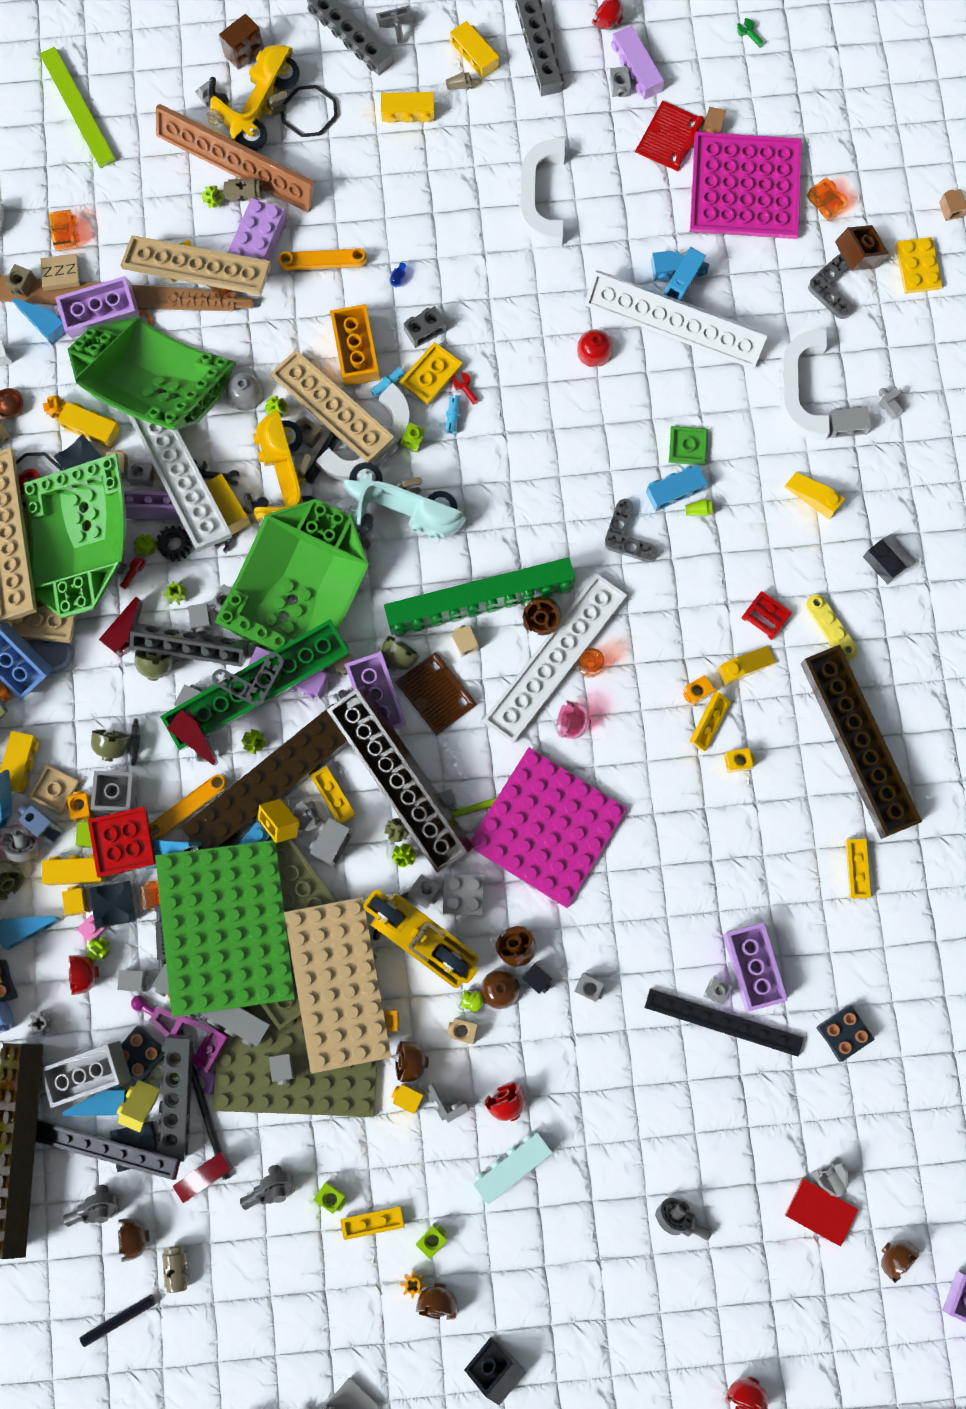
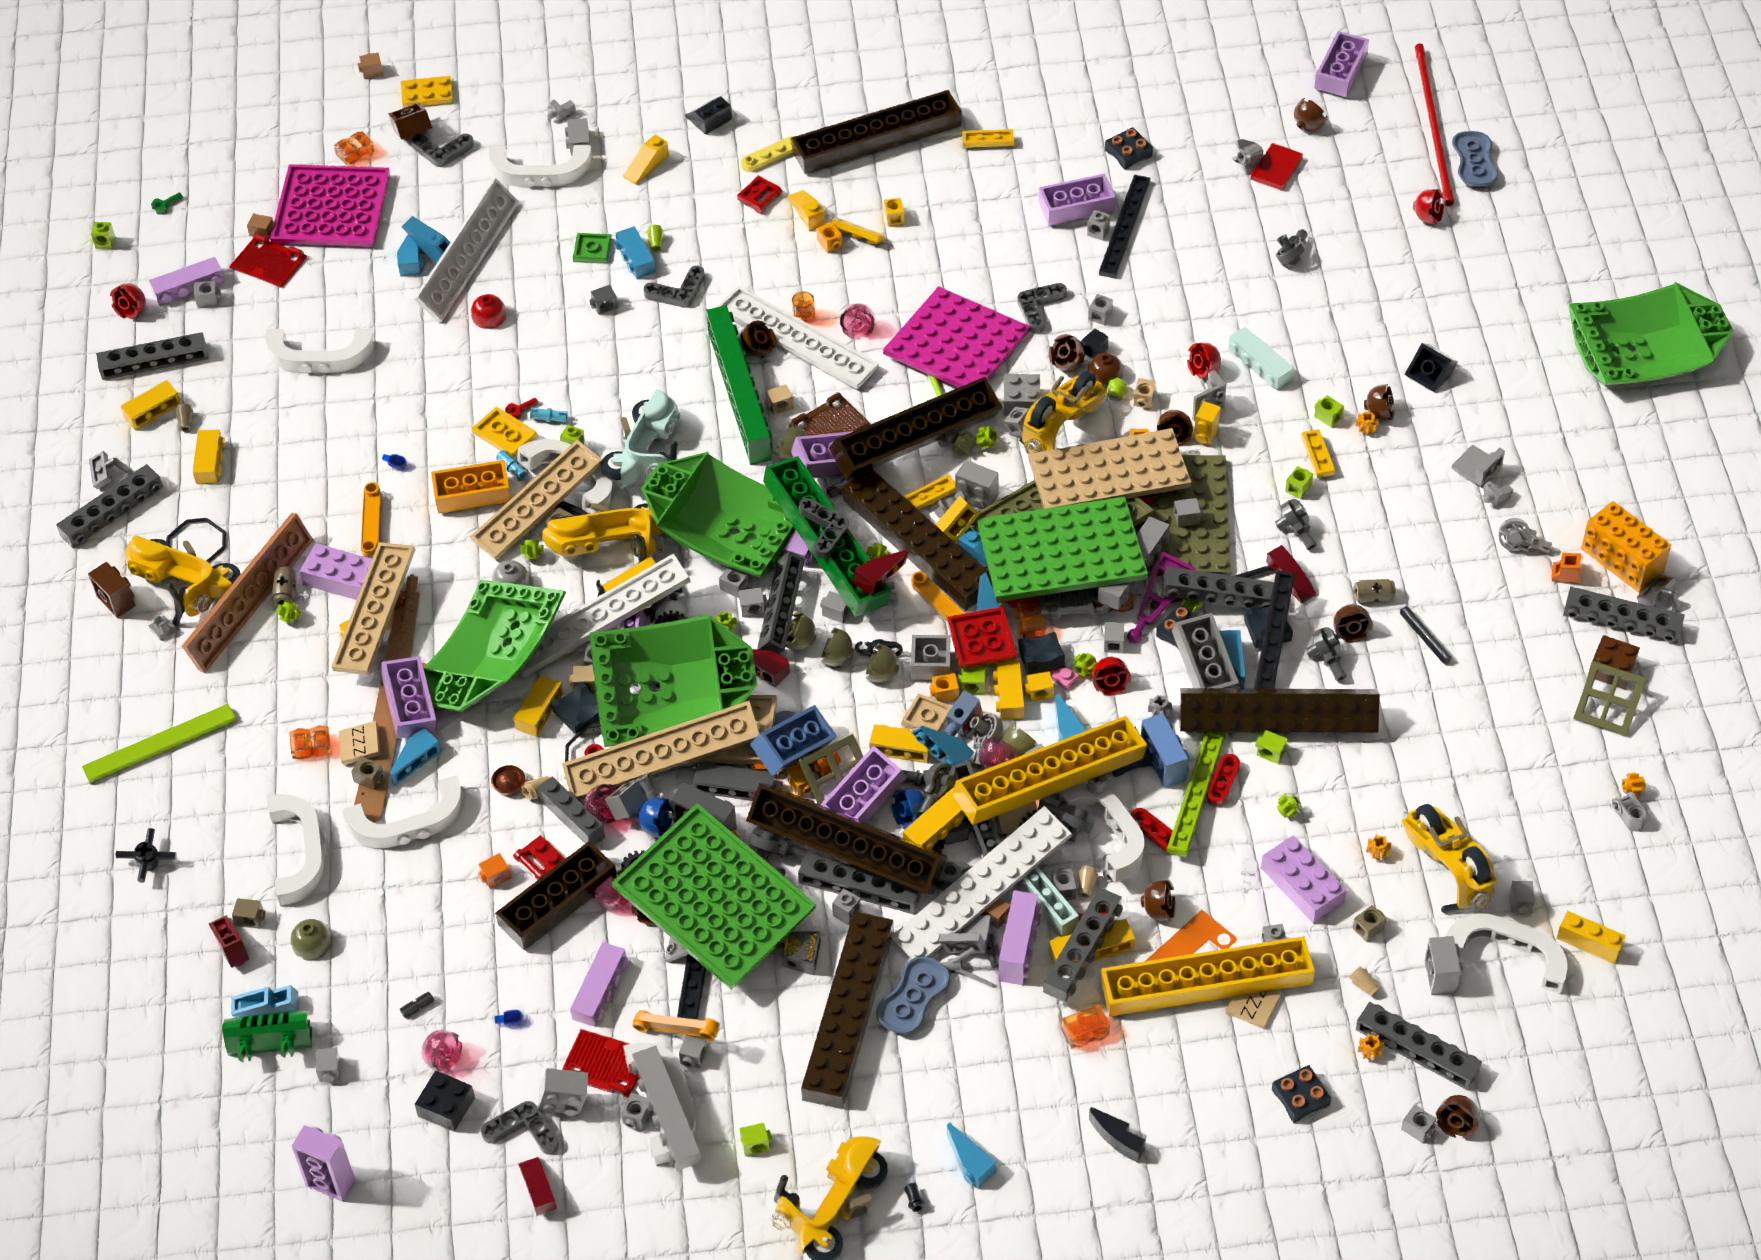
camera: 90 degrees left, 25 degrees down
(54, 406) = (516, 735): light orange gear -> none
(132, 701) = (837, 648): none -> olive cylinder
(138, 1105) = (1233, 614): light yellow brick -> none
(427, 330) = (454, 437): dark grey brick -> none
(601, 911) = (1032, 304): none -> dark grey beam
(608, 459) = (603, 299): none -> dark grey brick

